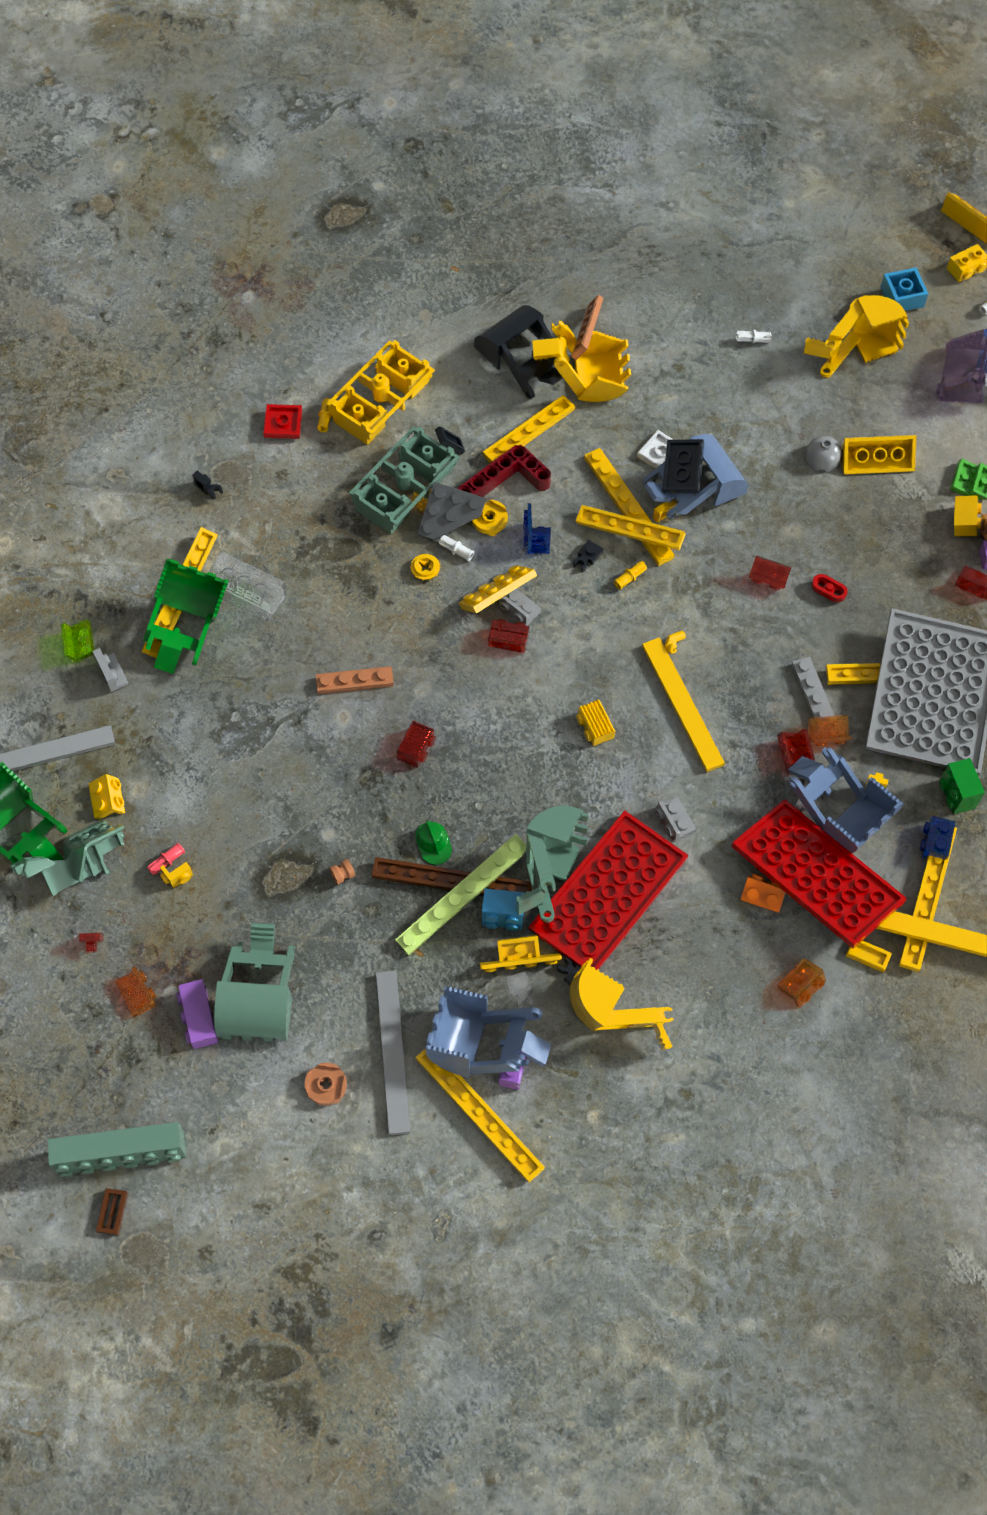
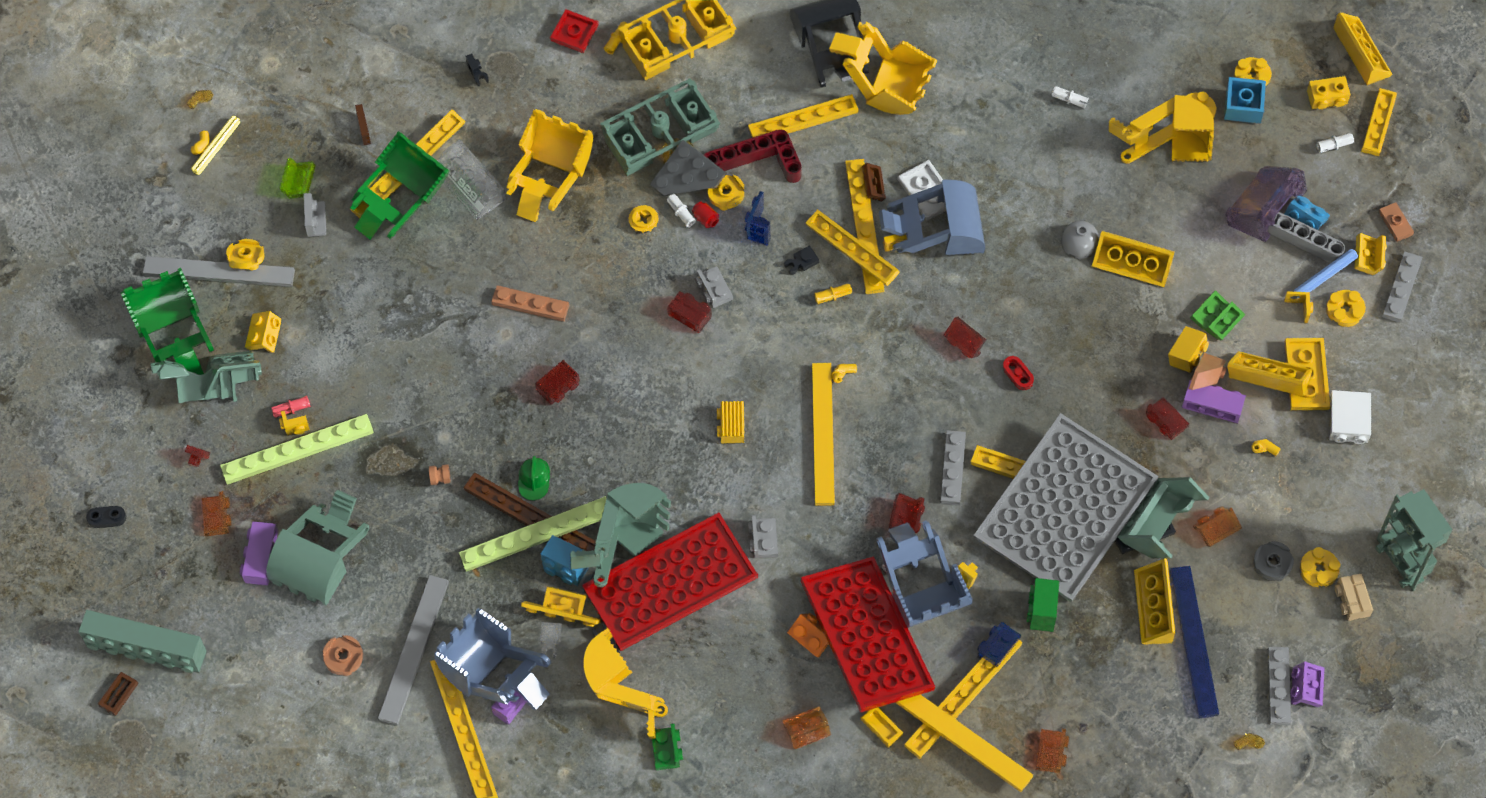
camera: 25 degrees right, 0 degrees up
(23, 1037) = (105, 517): none -> black plate
(48, 733) = (238, 259): none -> yellow plate
(120, 570) = (363, 125): none -> reddish brown tile
(188, 898) = (296, 449): none -> yellowish green plate
(315, 527) = (553, 144): none -> yellow piece
(449, 439) = (720, 103): black tile -> none
(481, 544) = (705, 214): none -> red brick
(497, 589) = (693, 264): yellow plate -> none
(587, 327) = (900, 36): nougat tile -> none
(619, 464) = (872, 183): none -> reddish brown tile
(683, 466) = (923, 205): black tile -> none
(683, 1055) = (665, 748): none -> green bracket
(829, 729) = (947, 507): clear orange bracket -> none
(892, 261) = (1255, 65): none -> yellow plate

